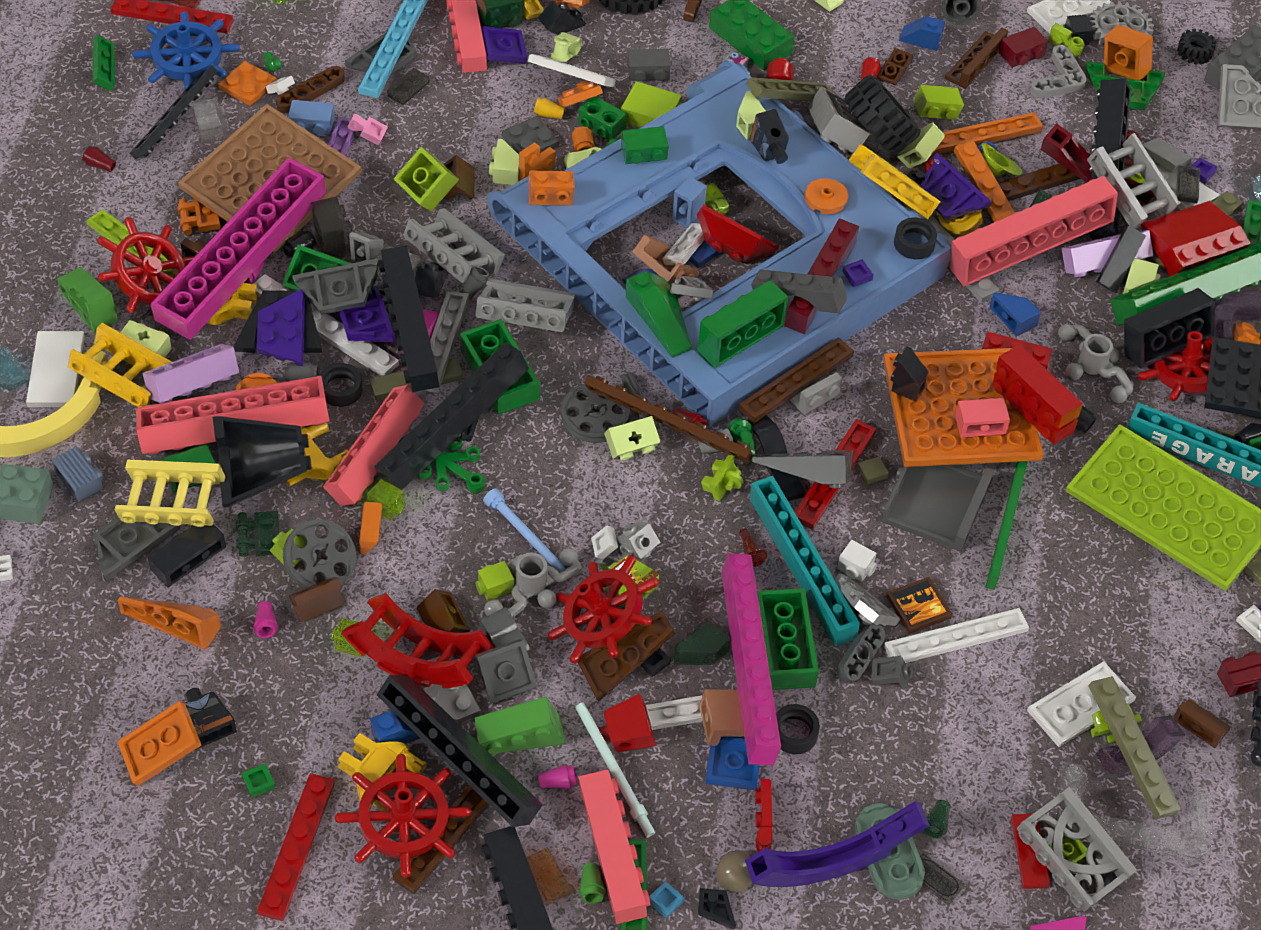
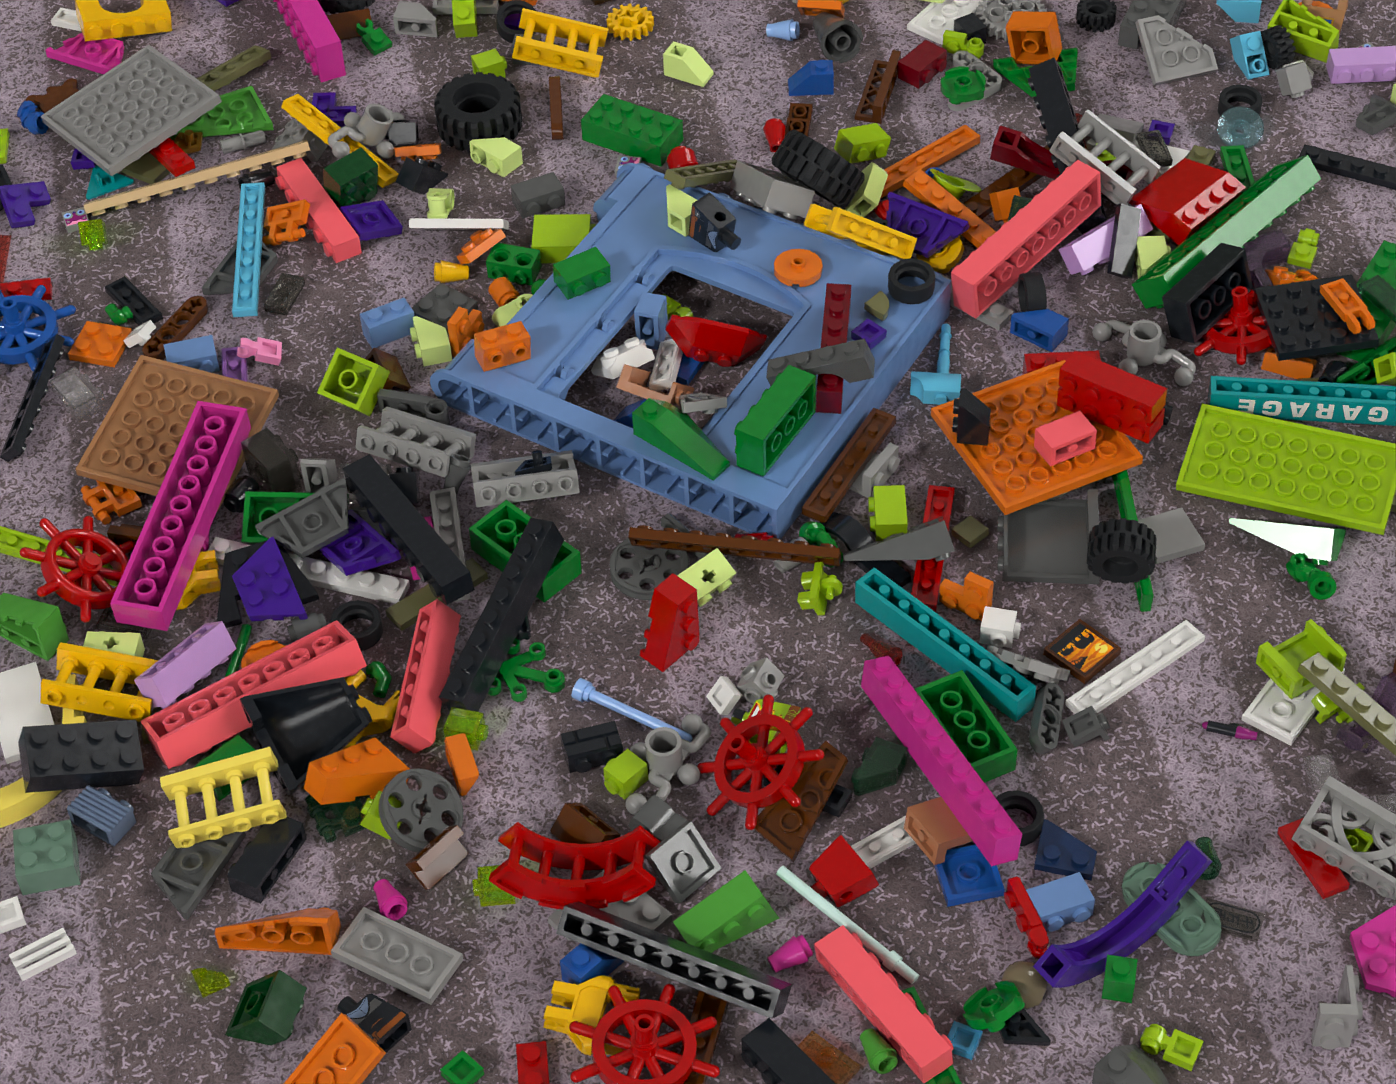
camera: 15 degrees left, 5 degrees down
(78, 420) = (80, 755): none -> black brick
(101, 637) = (209, 981): none -> clear neon green tile
(133, 676) = (267, 1009): none -> dark green slope
(244, 371) = (239, 652): none -> green bar
(251, 668) = (397, 955): none -> light grey plate
(279, 506) = (352, 772): none -> orange wedge
(289, 56) = (126, 294): none -> black tile
(342, 433) = (380, 673): none -> green arm
(436, 21) = (285, 216): none -> orange plate
(468, 214) = (415, 404): none -> dark grey plate
(477, 136) = (387, 322): none -> medium blue brick
(478, 548) = (591, 746): none -> black brick
(537, 297) = (536, 464): none -> black piece
(587, 467) = (673, 623): none -> red wedge
(631, 19) = (496, 154): none -> yellowish green slope
(656, 226) = (632, 353): none -> white slope
(699, 881) = (993, 1007): none -> green plate
(798, 813) = (1062, 901): none -> medium blue brick
(812, 430) = (889, 511): none -> lime brick
(815, 895) = (1119, 978): none -> green brick
(821, 772) = (1063, 853): none -> dark blue wing
(843, 526) = (968, 598): none -> orange plate
(878, 250) = (878, 305): none -> olive tile
(902, 335) = (939, 386): none -> medium azure piece
(984, 531) = (1121, 551): none -> black tyre
(1013, 716) = (1231, 729): none -> piece
(1020, 278) = (1031, 292): none -> black tyre
(1031, 189) = (1001, 203): none -> orange brick
(1040, 529) = (1174, 535): none -> light grey tile
(1041, 83) = (972, 88): none -> green plate
(1082, 671) = (1284, 659): none -> lime panel
(1149, 615) = (1320, 583): none -> green arm
(1159, 577) = (1314, 542): none -> wedge
(1221, 419) = (1293, 368): none -> orange slope

